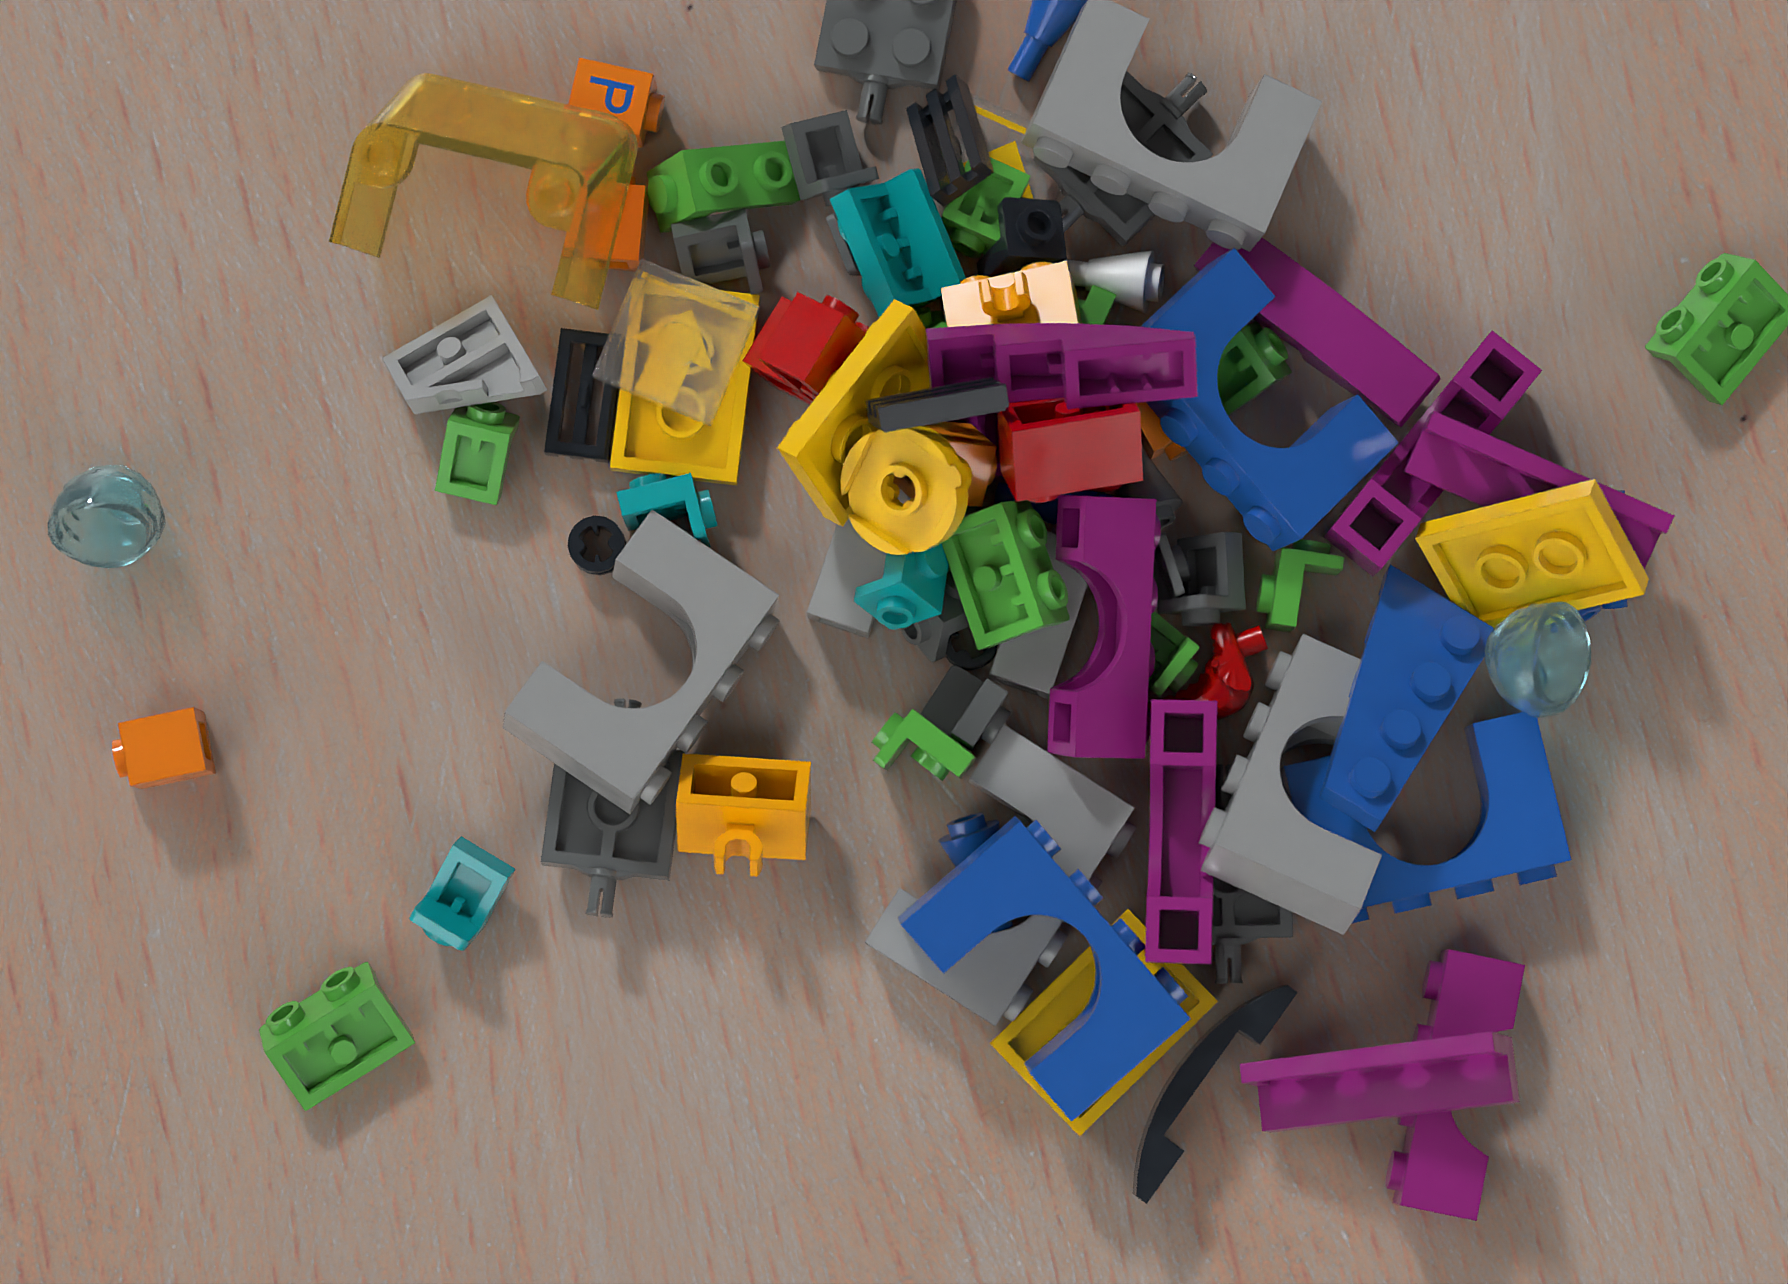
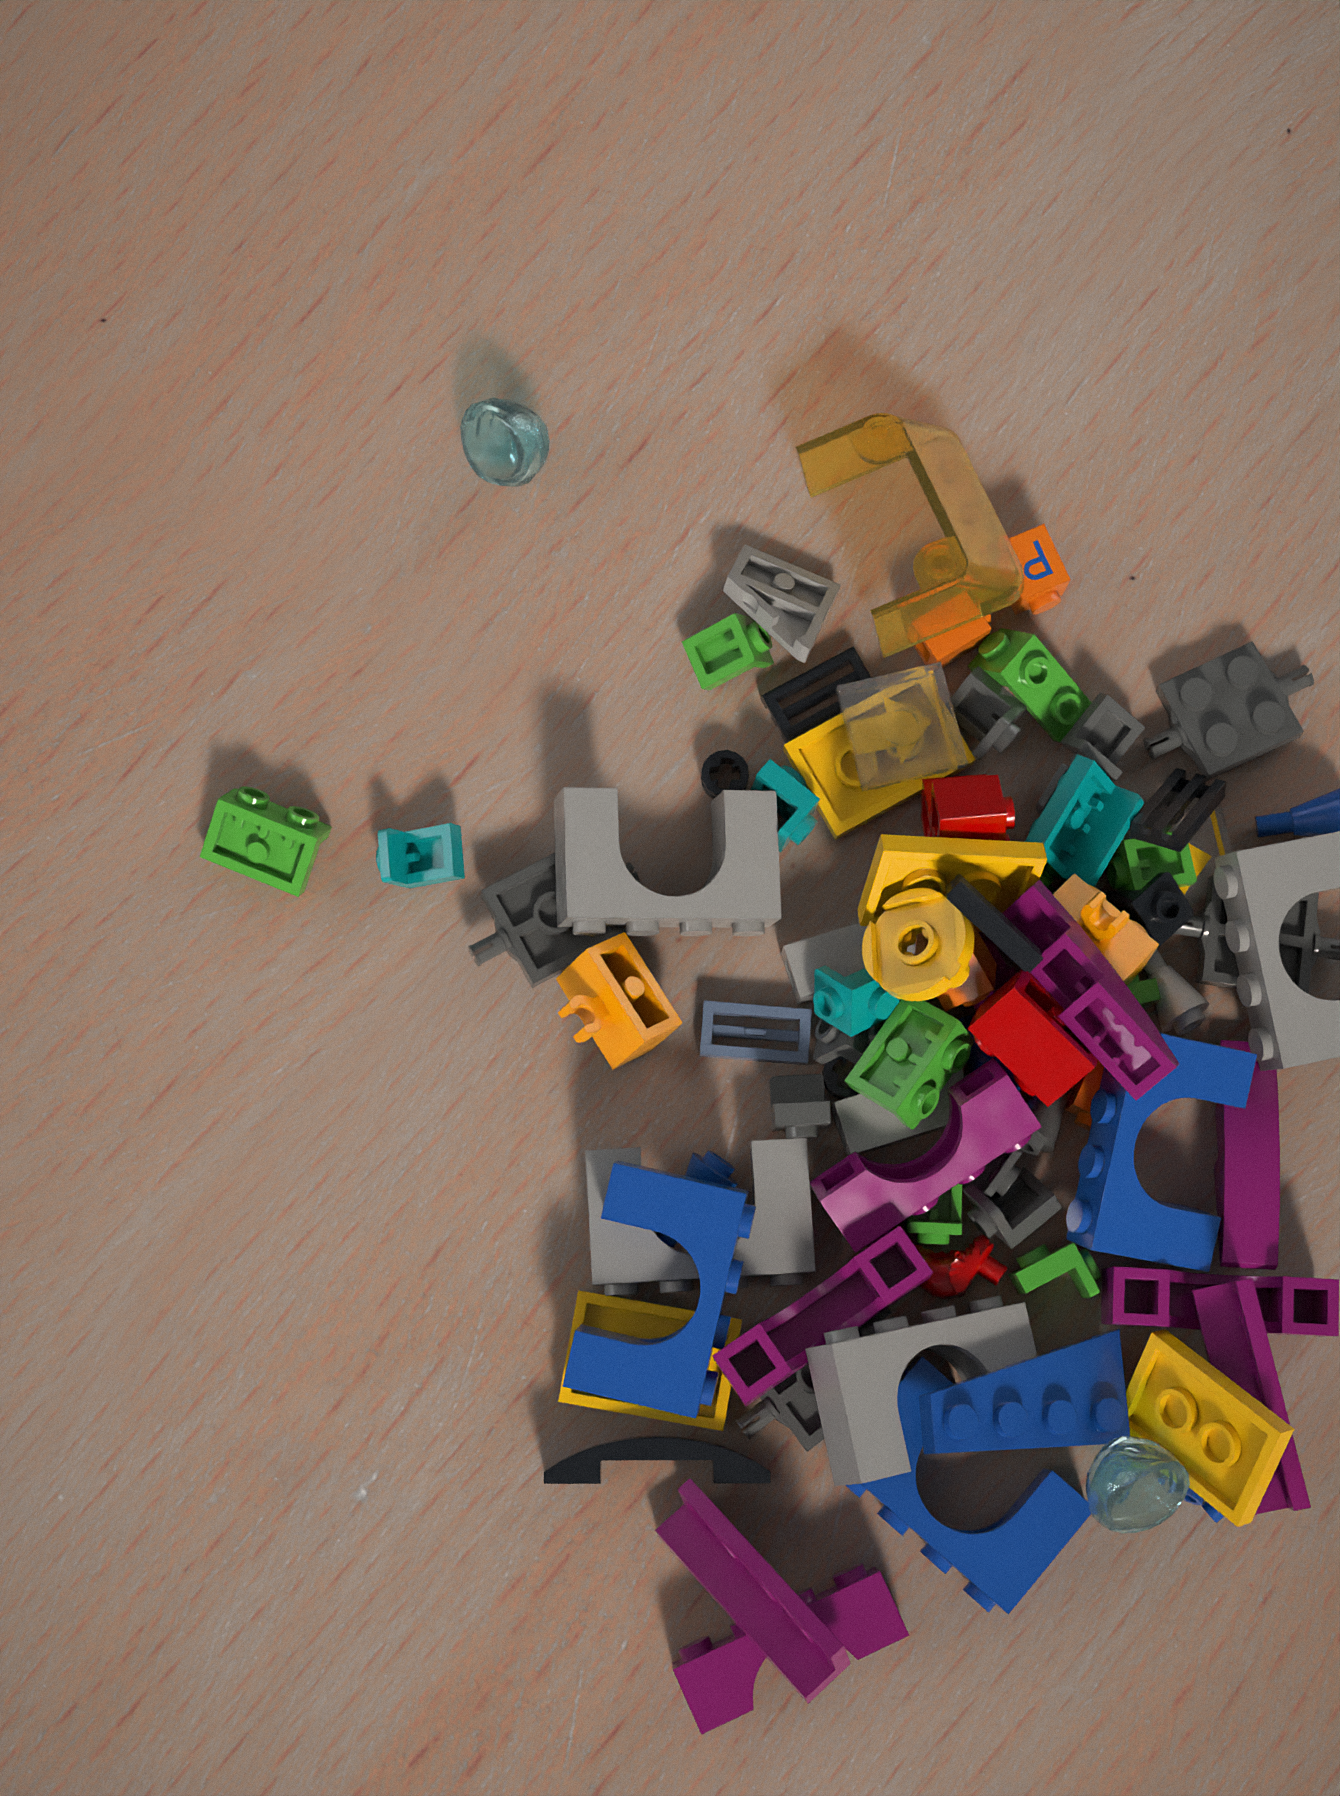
camera: 50 degrees right, 5 degrees down
(164, 748) = (378, 590): orange brick -> none
(832, 739) = (801, 1037): none -> sand blue tile
(934, 750) = (753, 1101): bright green bracket -> none
(1250, 365) = (1181, 1127): bright green bracket -> none

